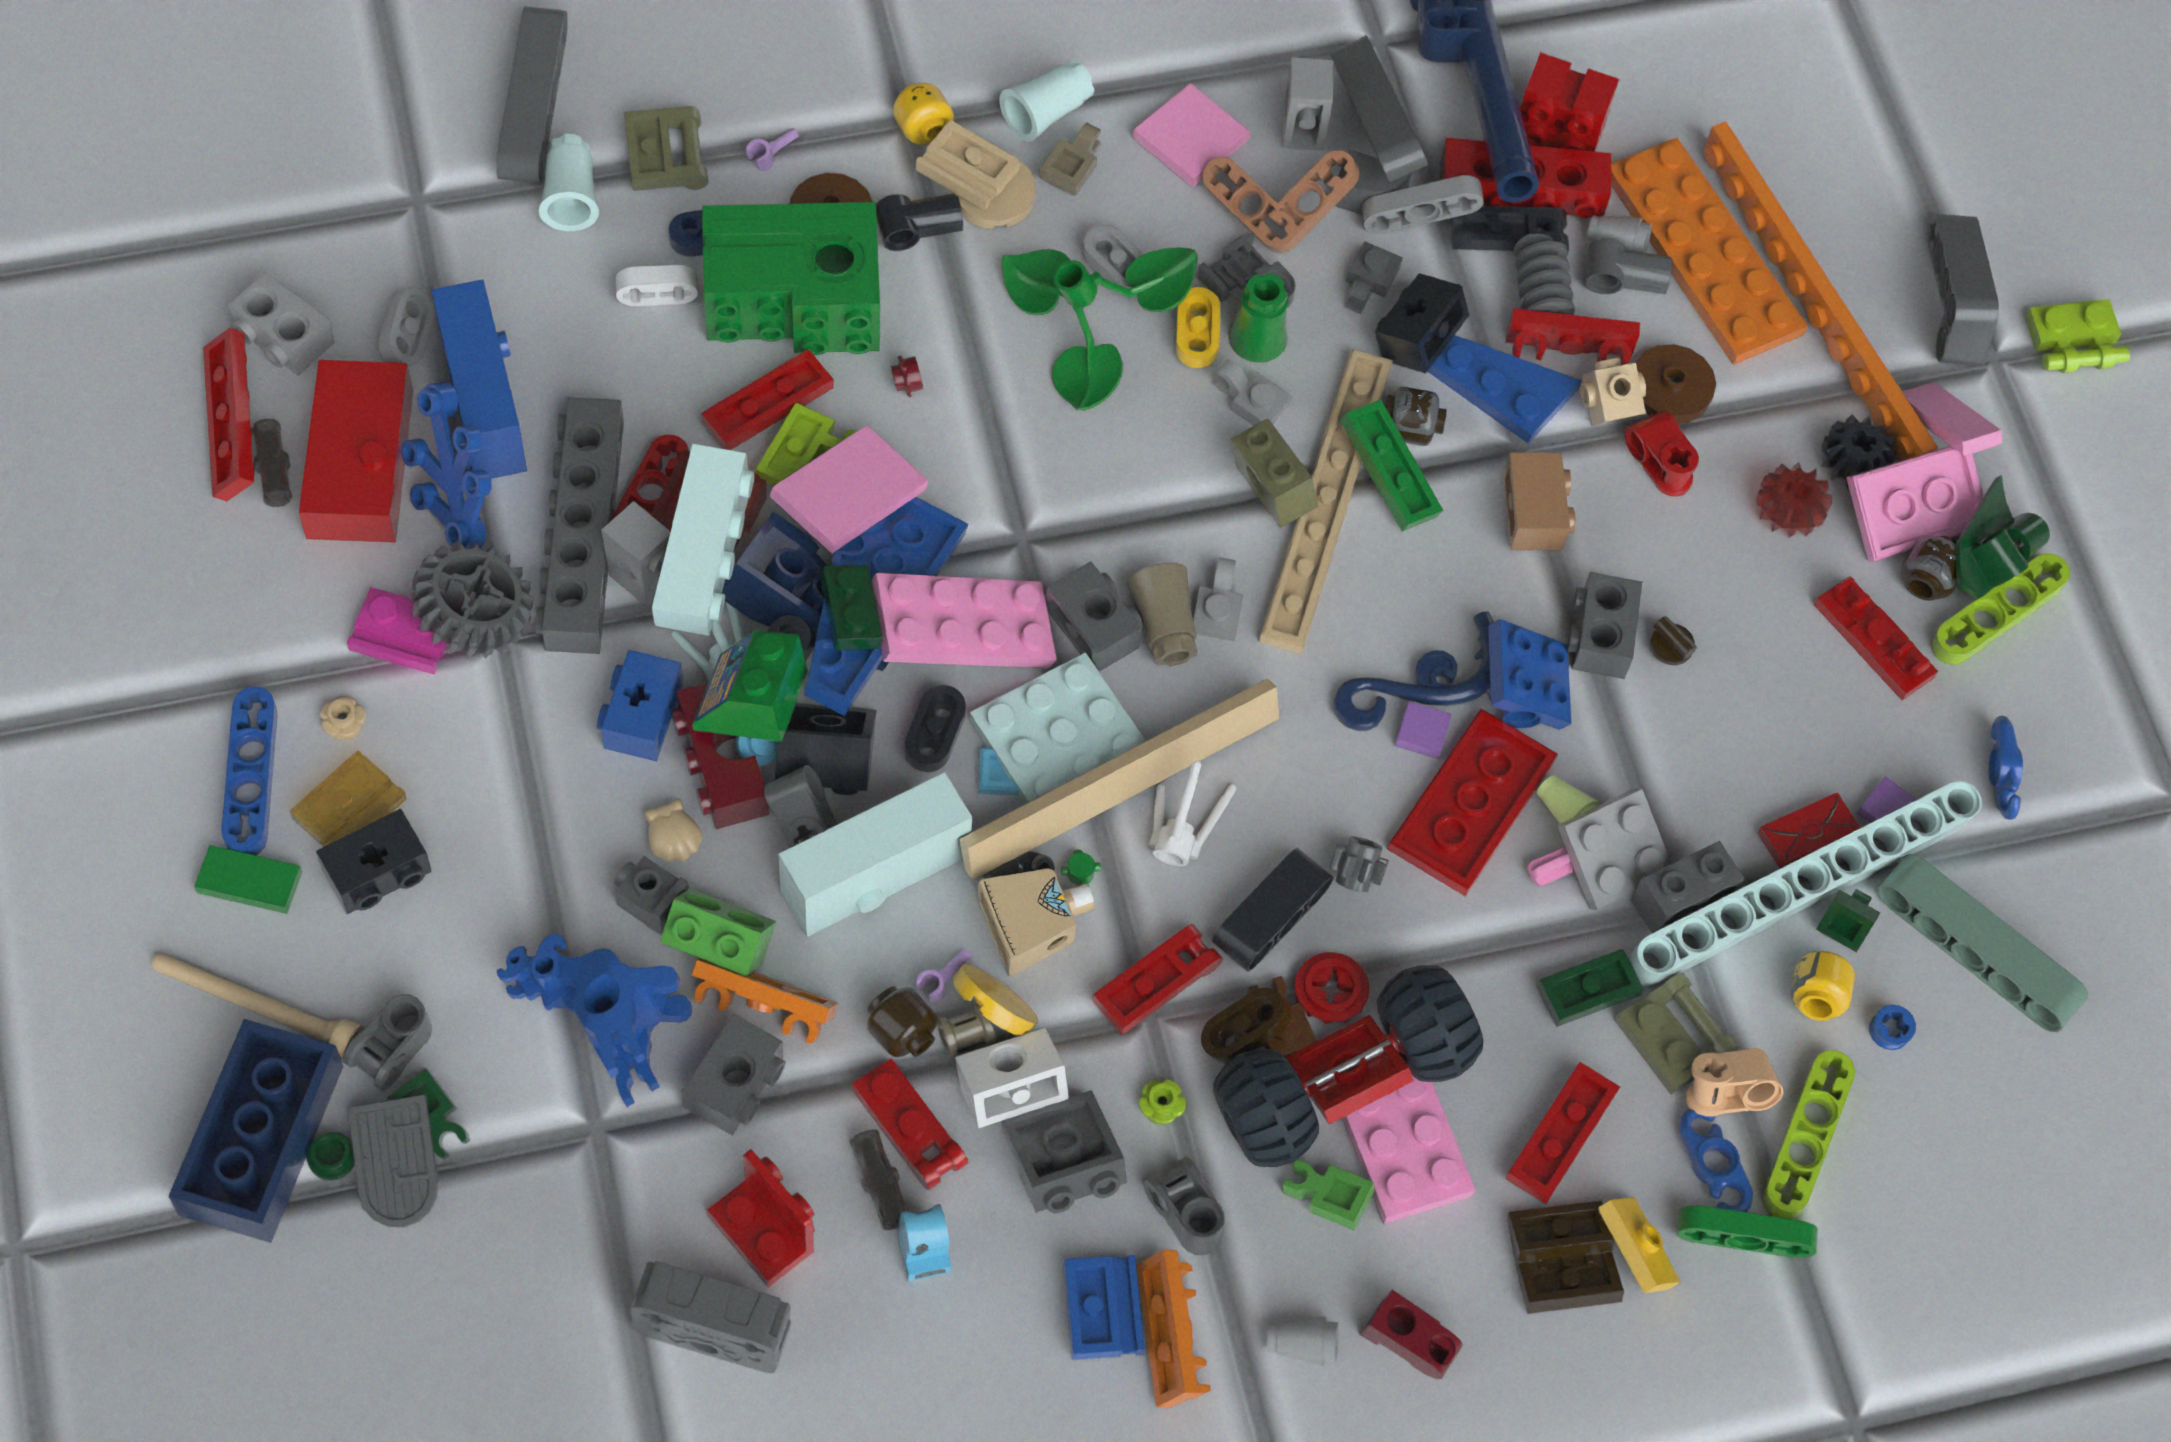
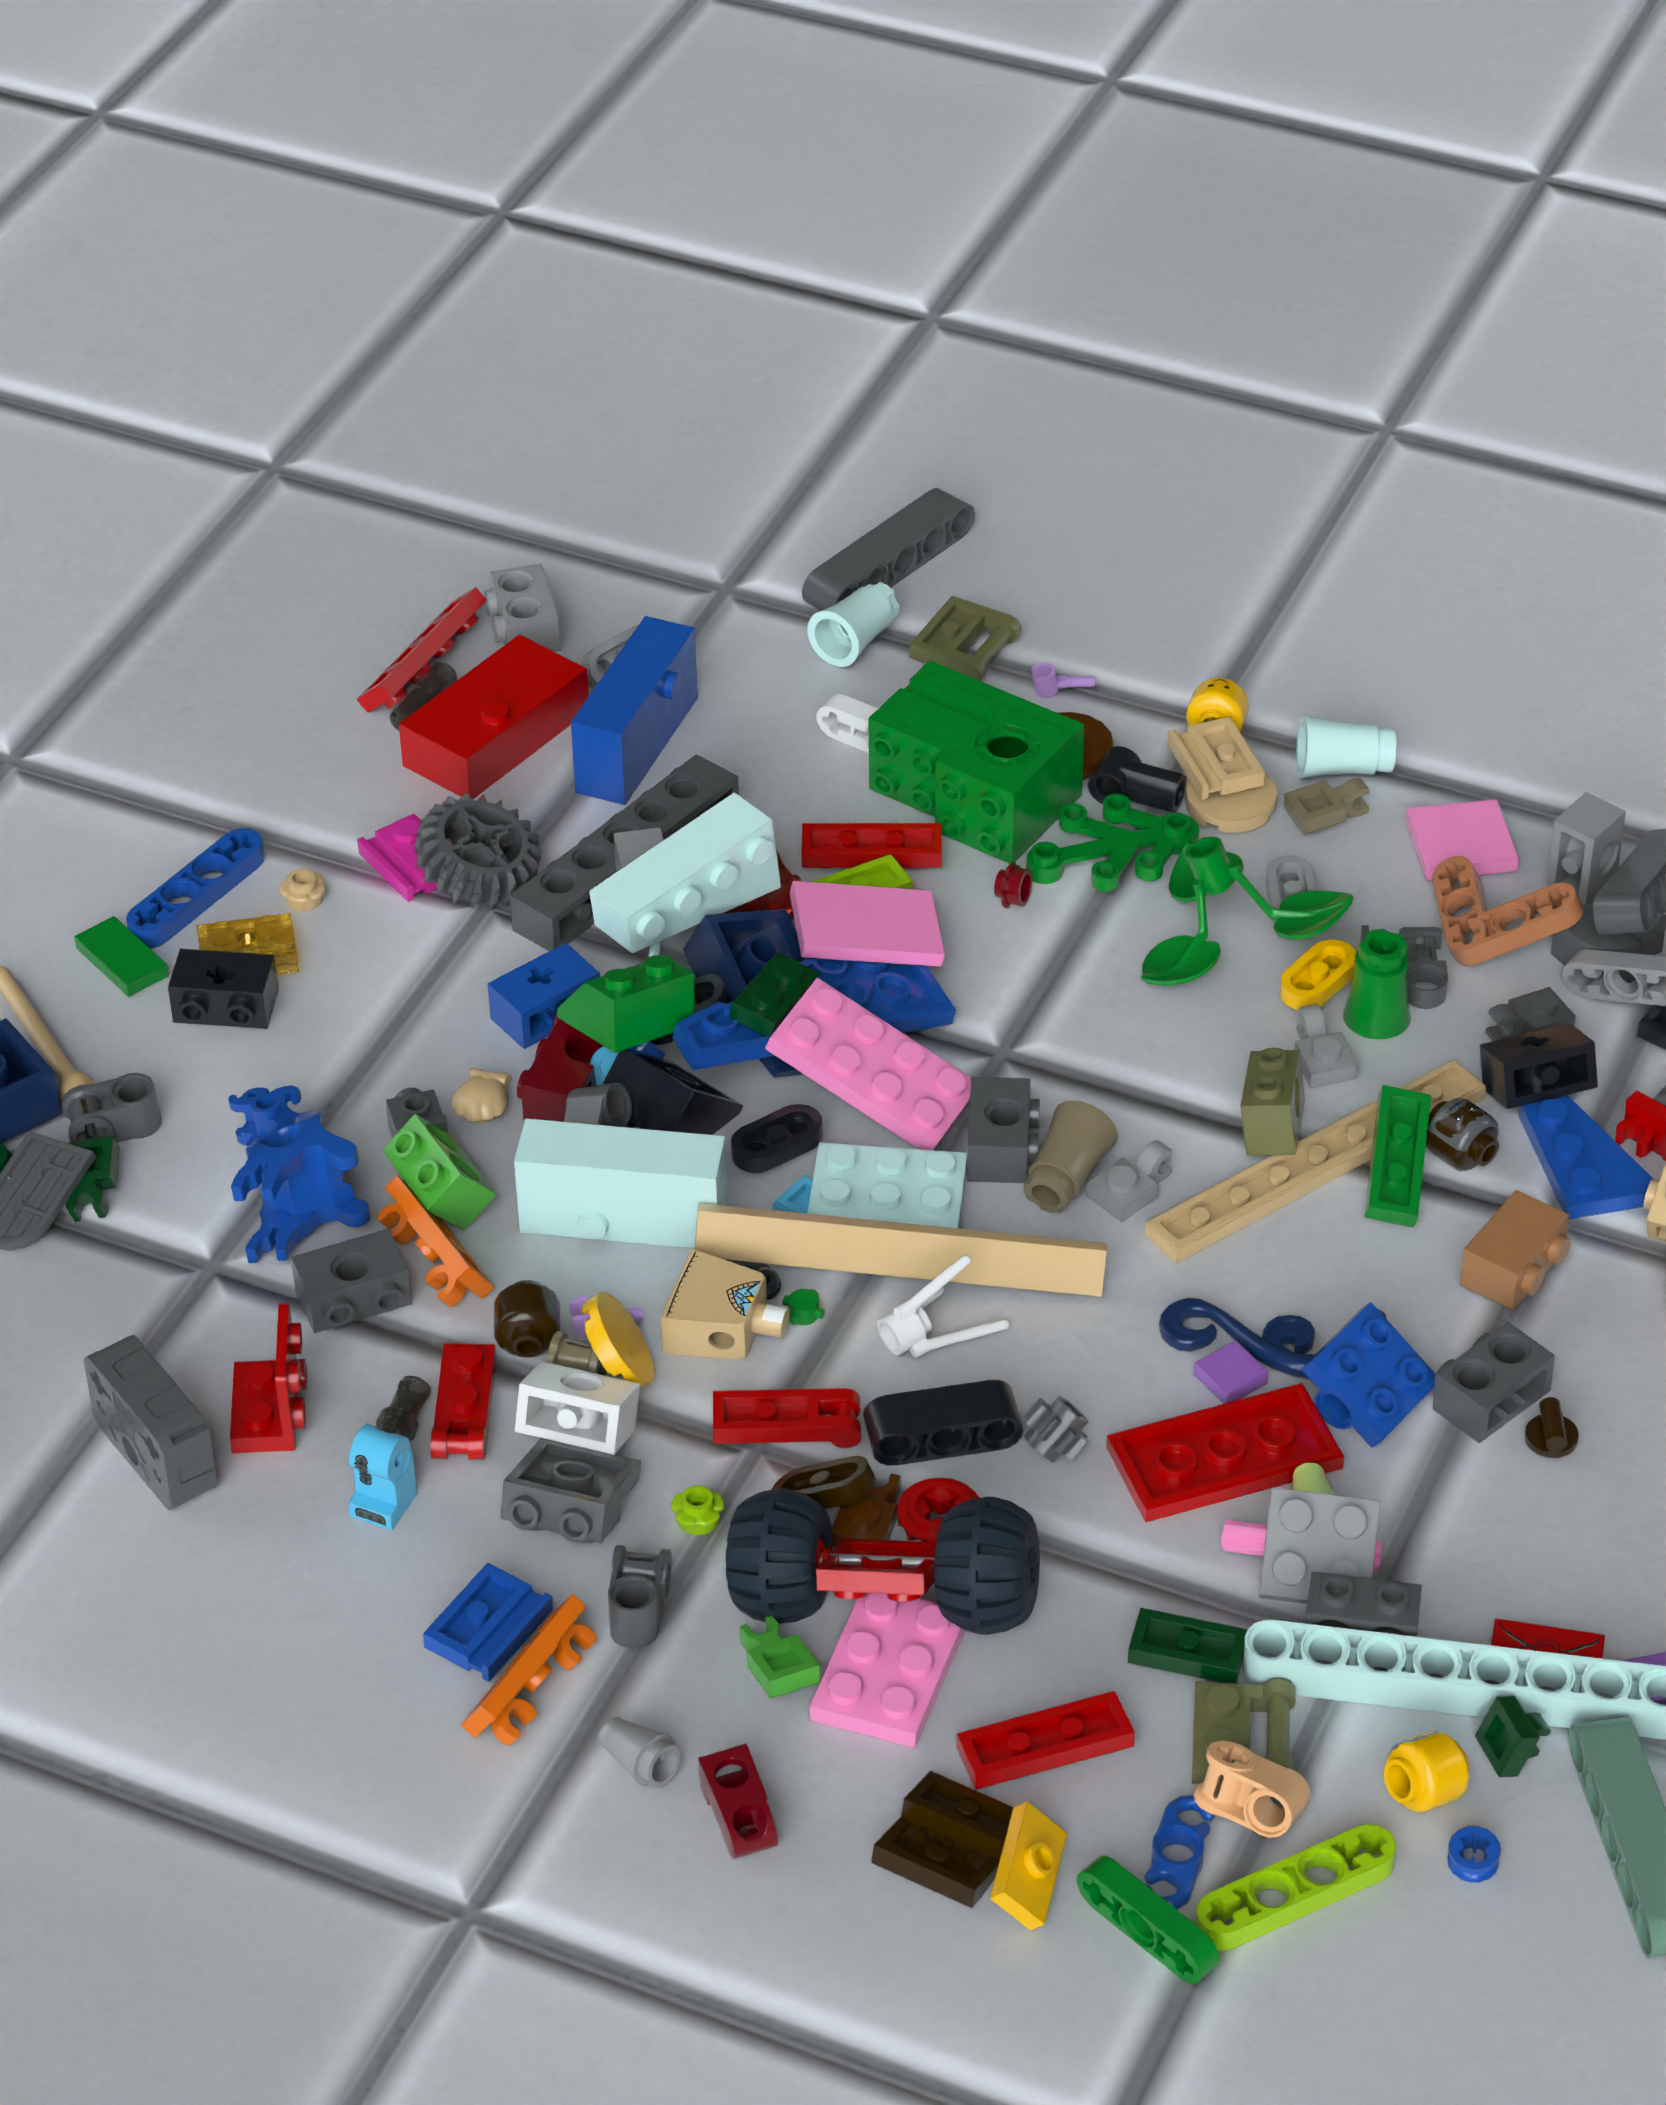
camera: 45 degrees right, 20 degrees down
(451, 472) = (546, 741): blue plant -> none
(948, 285) = (1165, 832): none -> green plant

